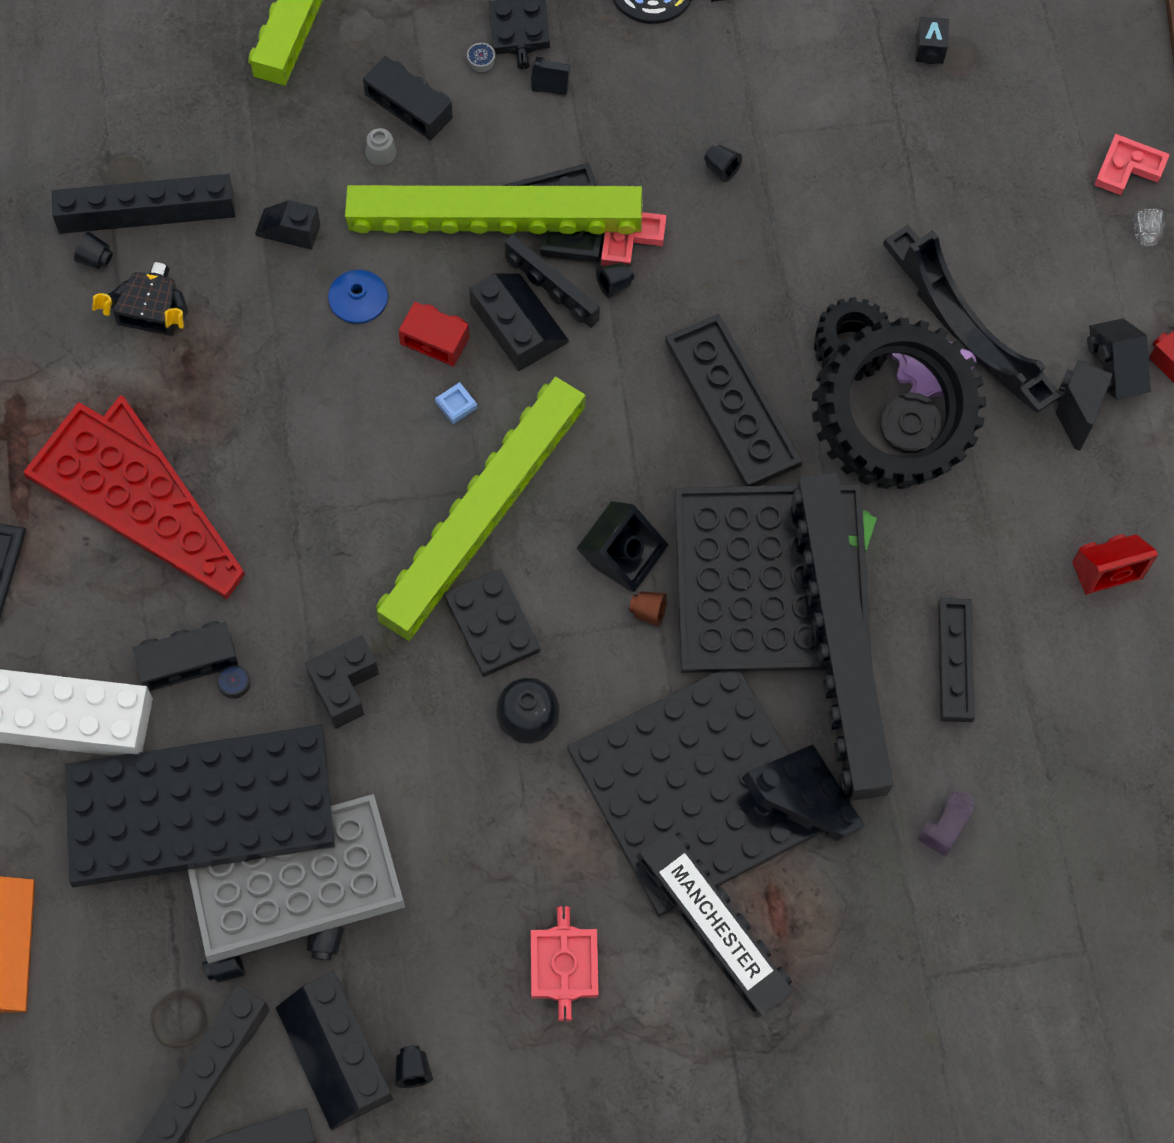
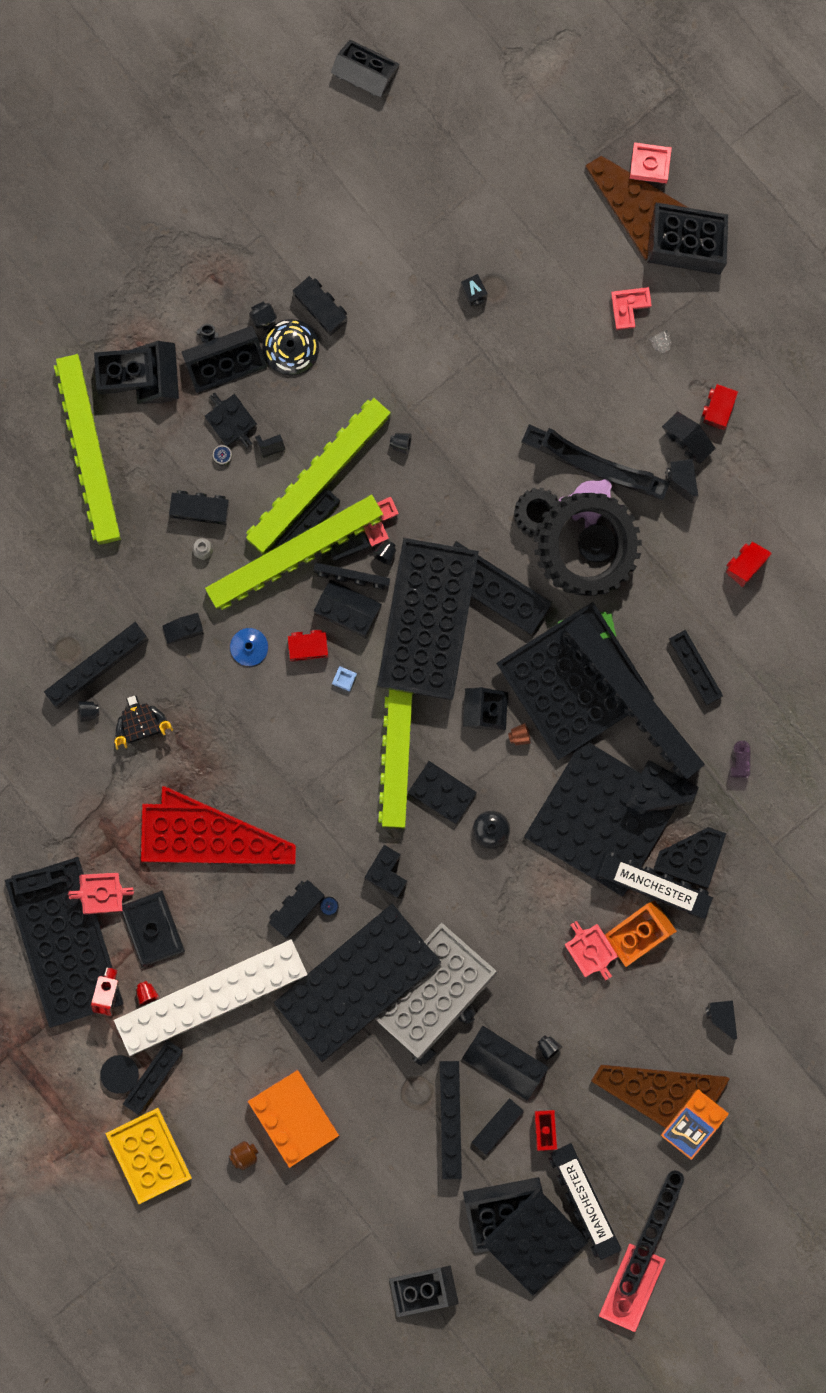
camera: 30 degrees left, 15 degrees up
(591, 140) = (318, 476): none -> lime brick
(615, 382) = (428, 619): none -> black plate
(653, 981) = (640, 933): none -> orange slope
(796, 918) = (692, 857): none -> black plate

